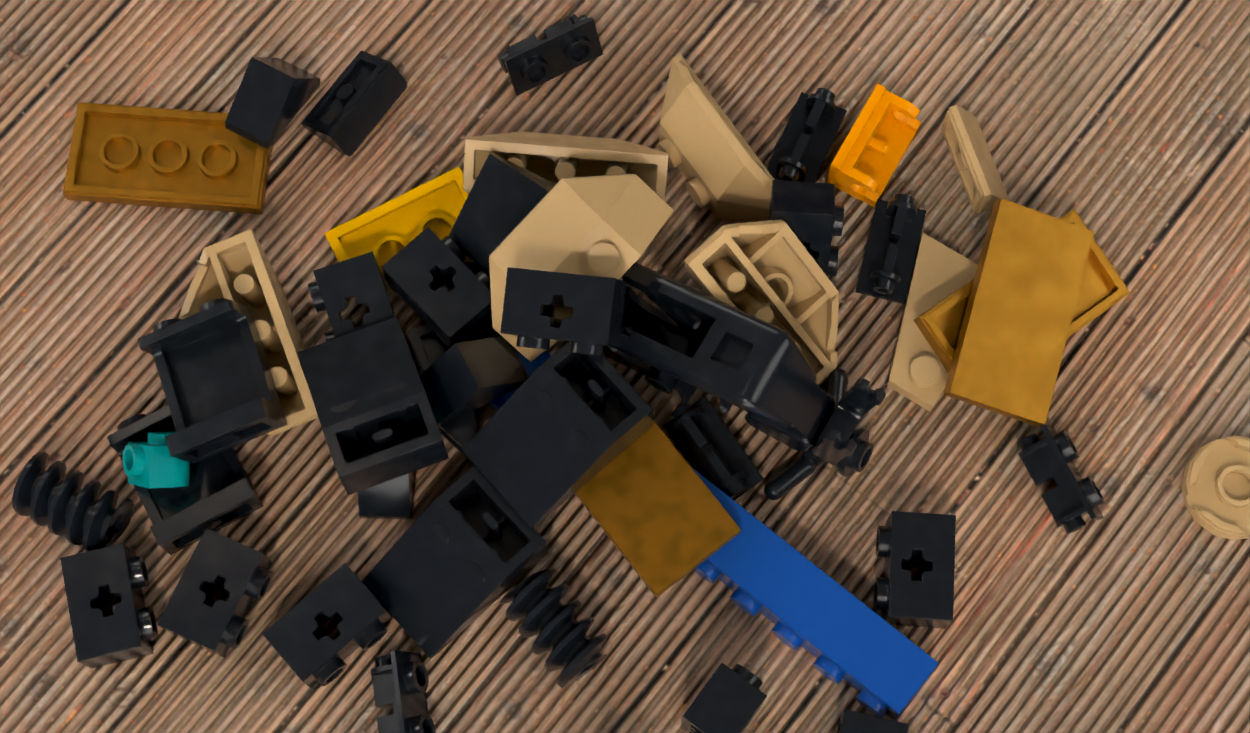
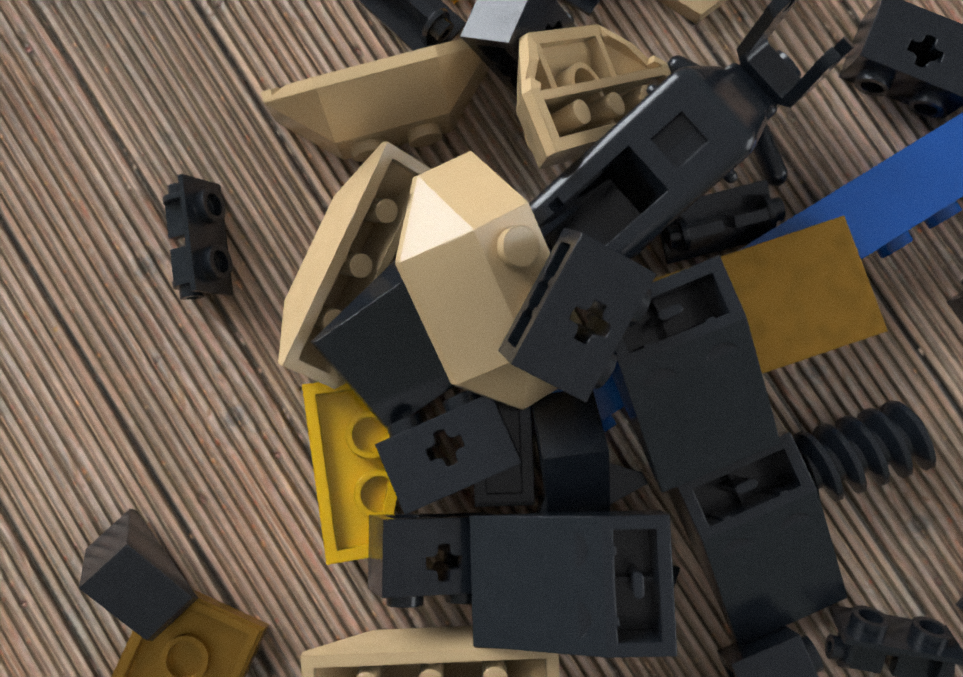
camera: 70 degrees left, 10 degrees up
(356, 102) = (174, 476): black slope -> none

